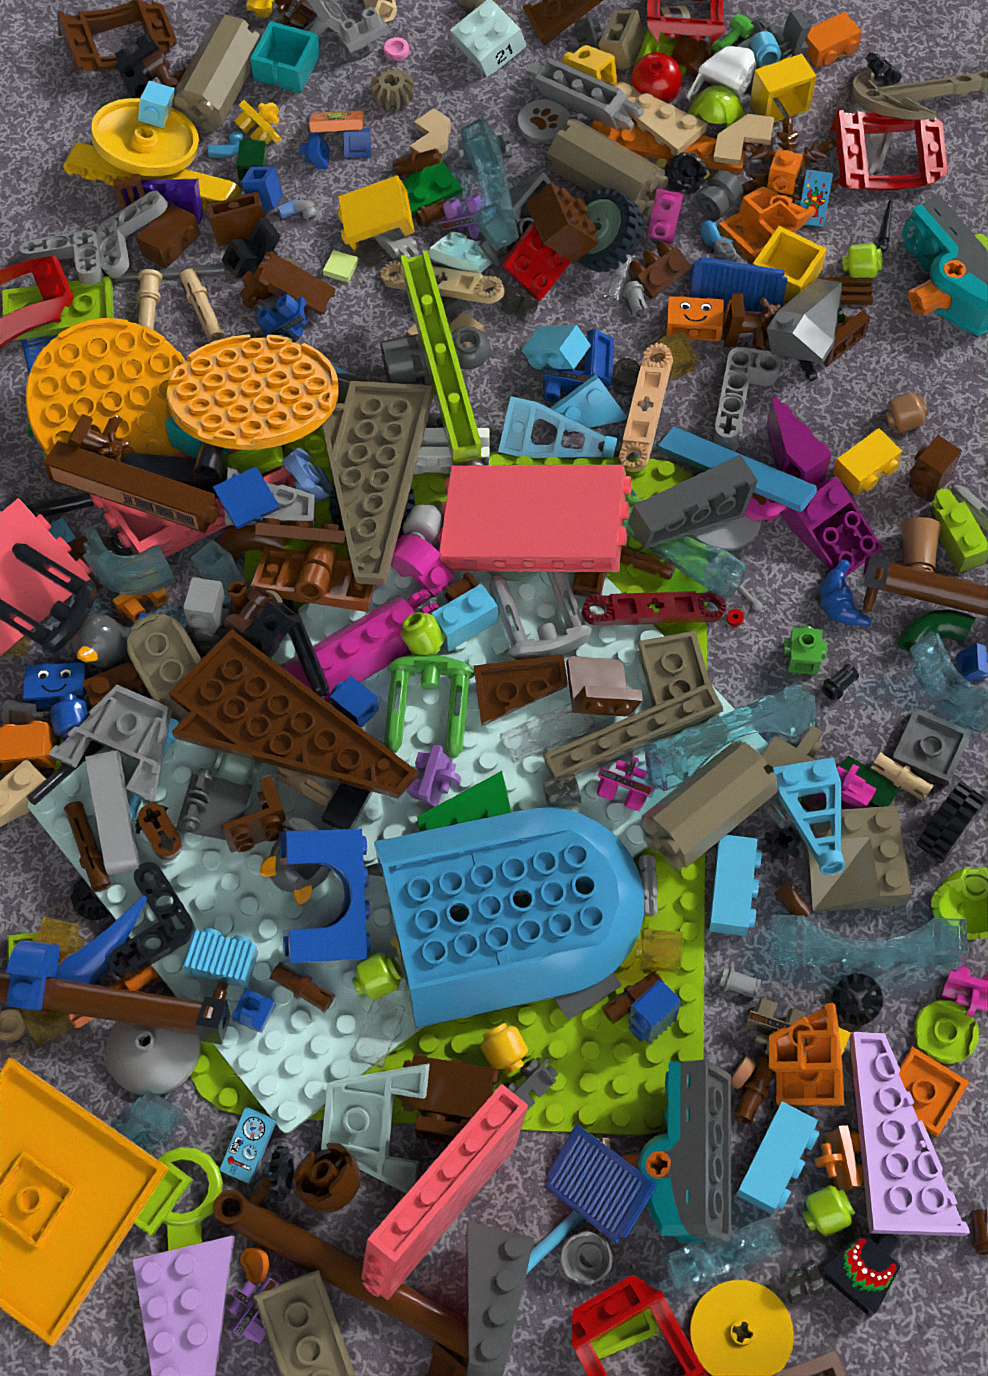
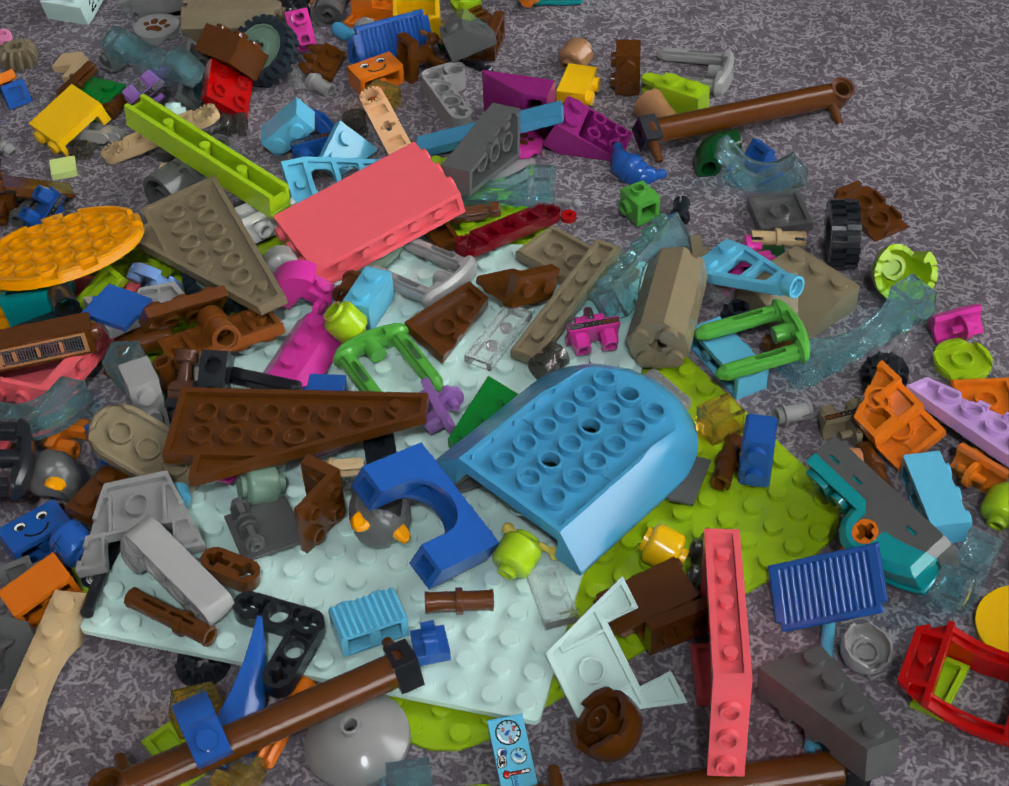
camera: 35 degrees left, 20 degrees down
(281, 1173) = (562, 750): black gear -> none
(795, 905) = (788, 328): none -> bright green piece

